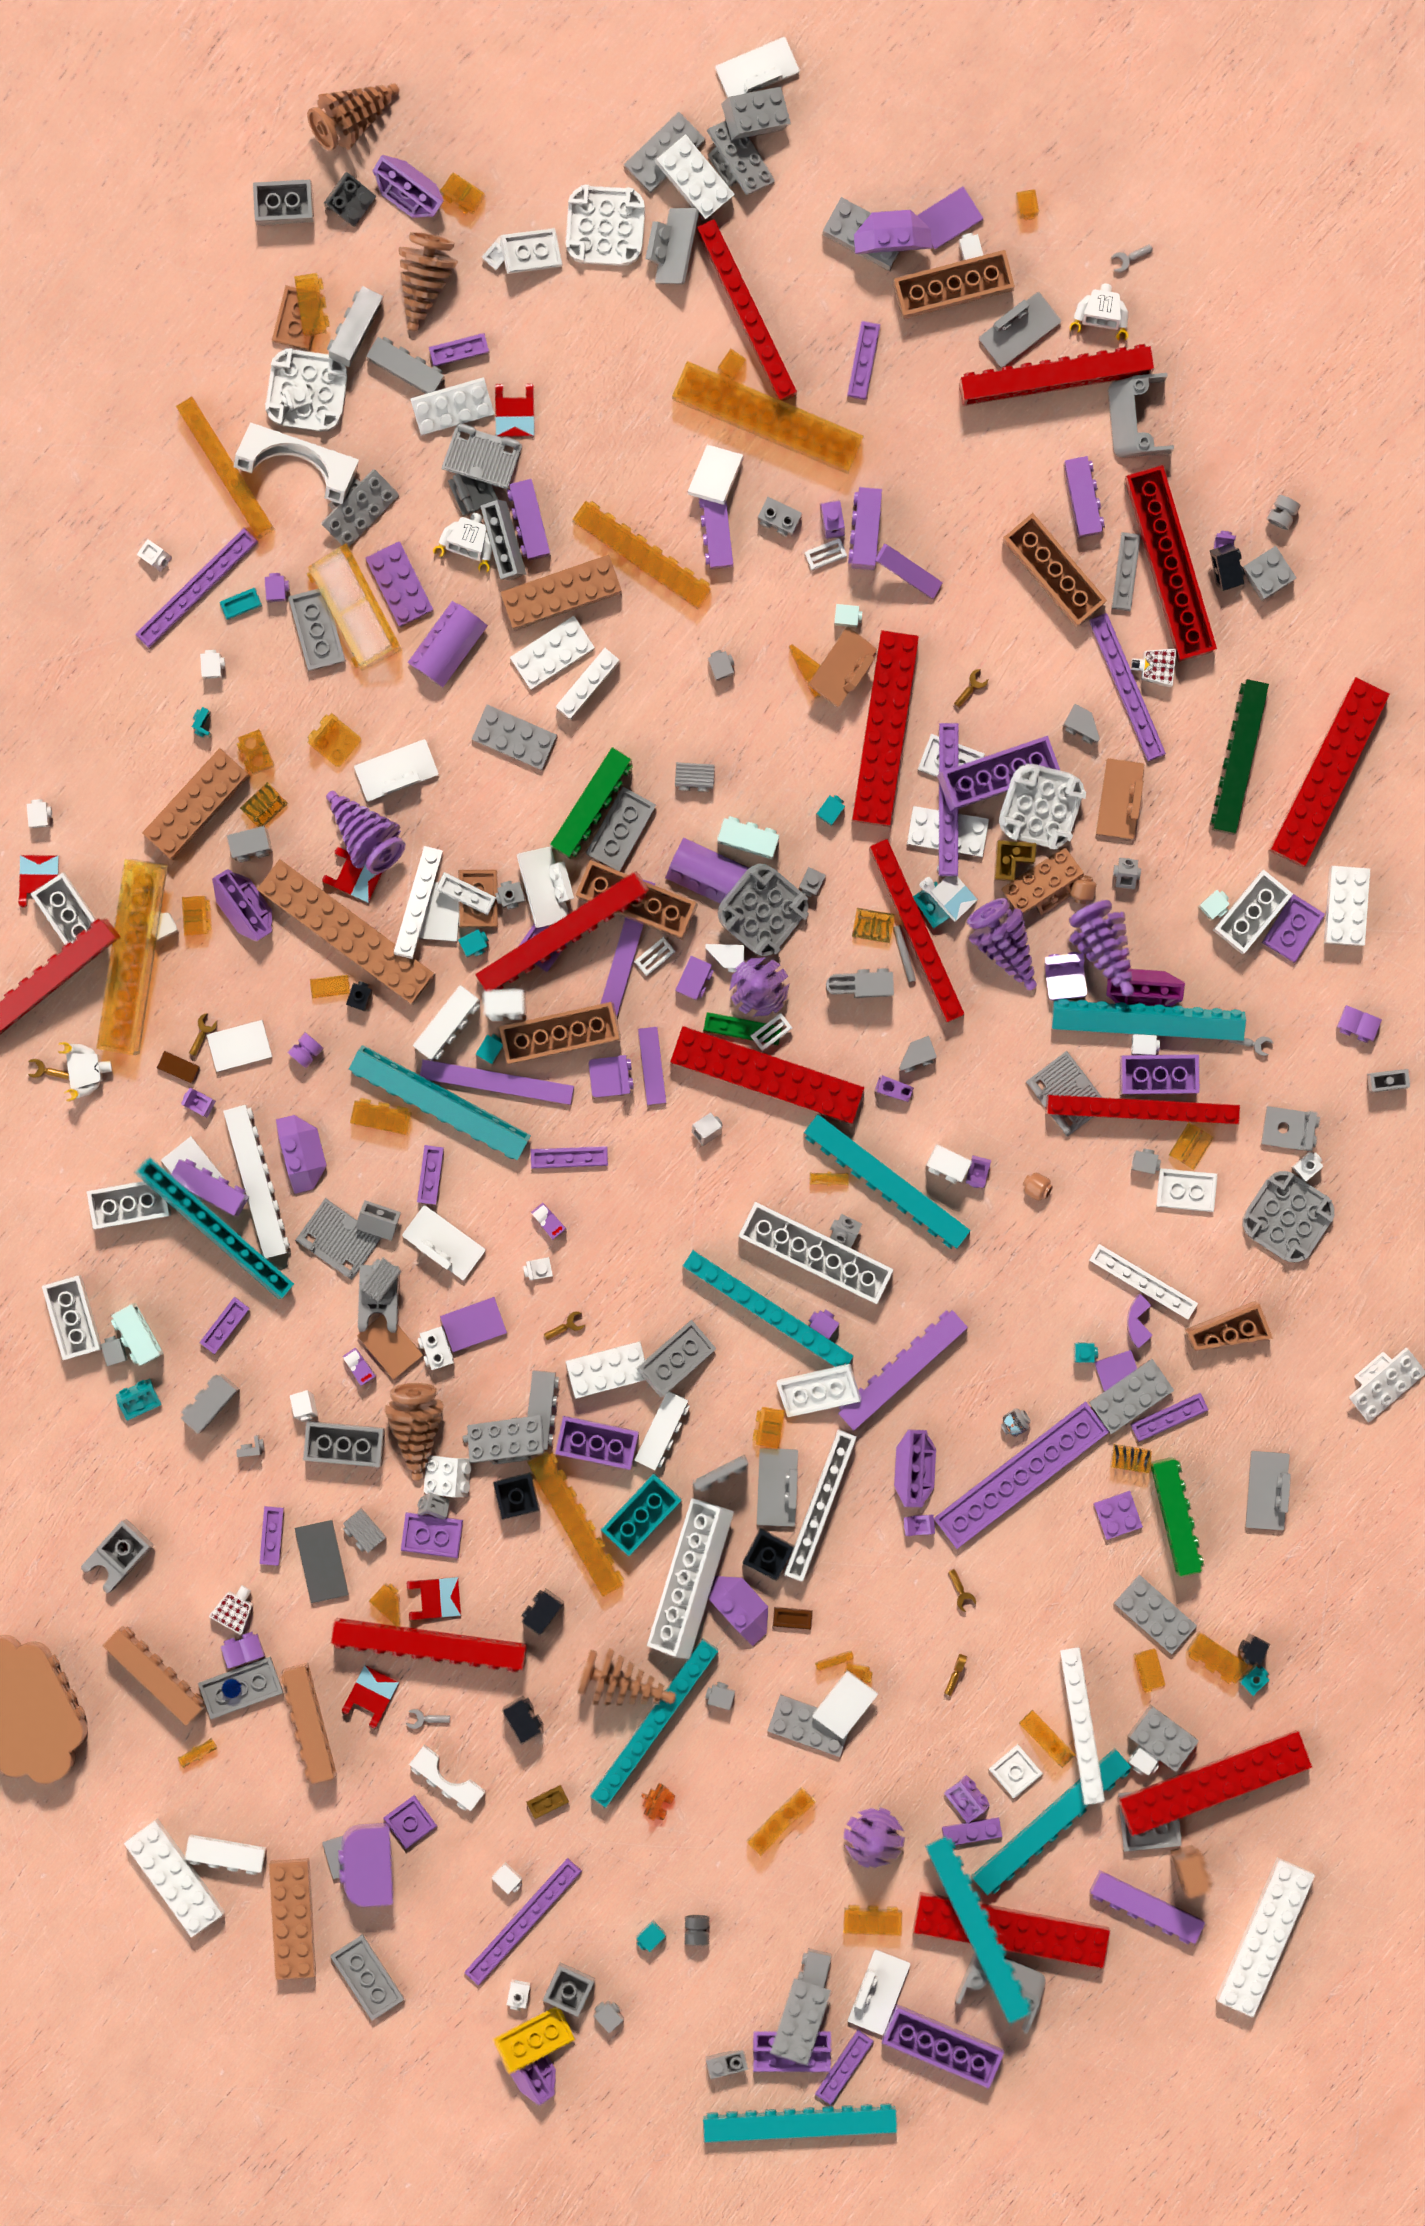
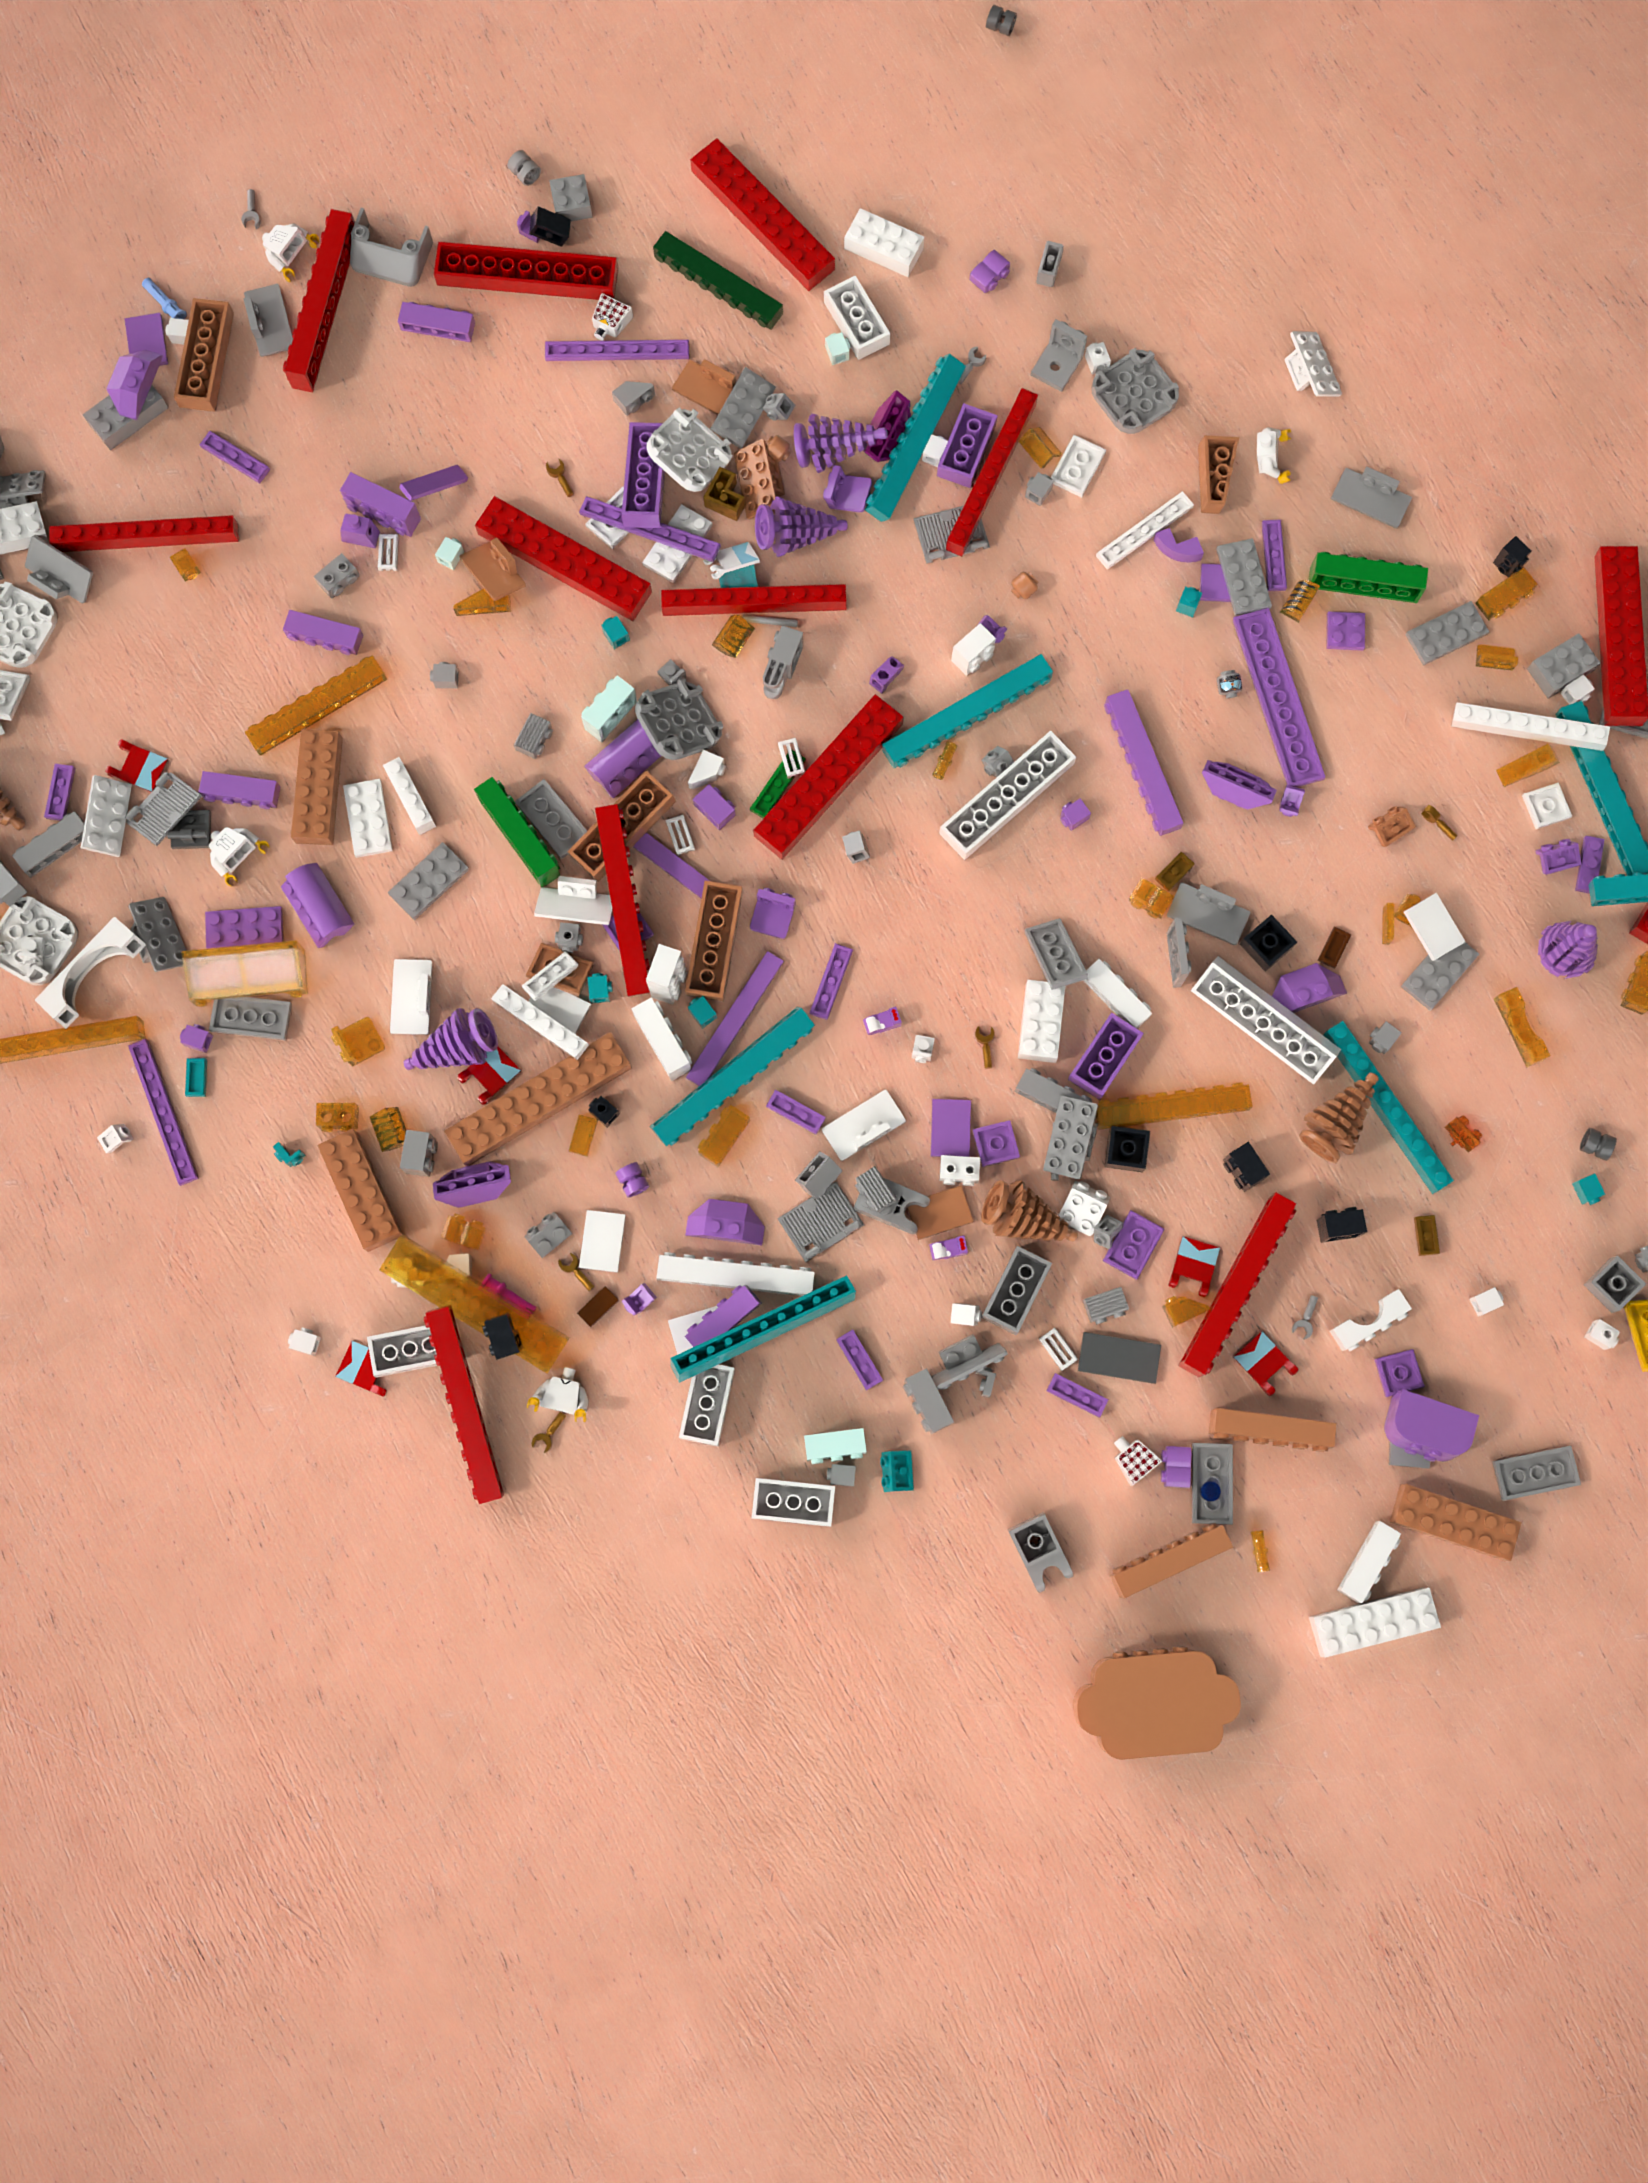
camera: 70 degrees left, 10 degrees down
(108, 998) = (503, 1336): none -> black brick
(157, 972) = (501, 1288): none -> dark pink pin
(212, 664) = (239, 1124): white brick -> none
(225, 993) = (547, 1234): none -> light grey bracket
(261, 1421) = (964, 1359): none -> light grey bracket
(316, 1488) = (1052, 1354): none -> white tile
(475, 1372) = (996, 1143): none -> medium lavender plate
(503, 540) = (246, 818): light grey brick -> none
(523, 1921) = (1532, 1304): medium lavender tile -> none
(641, 1514) = (1188, 1042): teal brick -> none
(652, 1065) = (778, 875): medium lavender tile -> none
(715, 474) = (274, 613): white tile -> none
(759, 987) = (746, 750): medium lavender plant -> none
(767, 417) = (244, 551): clear yellow brick -> none
(767, 1310) = (1043, 858): teal brick -> none
(805, 1440) = (1174, 871): none -> pearl gold plate
(818, 1390) = (1135, 839): white plate -> none
(820, 1505) = (1239, 878): white brick -> none
(918, 1052) = (863, 641): light grey slope -> none
(934, 1629) = (1392, 825): none -> nougat bracket
(959, 1587) = (1361, 790): pearl gold piece -> none
(994, 223) = (168, 305): none -> light blue pin
(1027, 204) = (165, 272): clear yellow brick -> none
(1054, 570) = (488, 366): nougat brick -> none
(1113, 838) = (742, 408): none -> light grey plate
(1125, 571) = (517, 314): light grey tile -> none
(1247, 1679) = (1539, 569): teal brick -> none
(1272, 1372) = (1268, 453): none -> white torso
(1293, 928) = (886, 295): medium lavender tile -> none

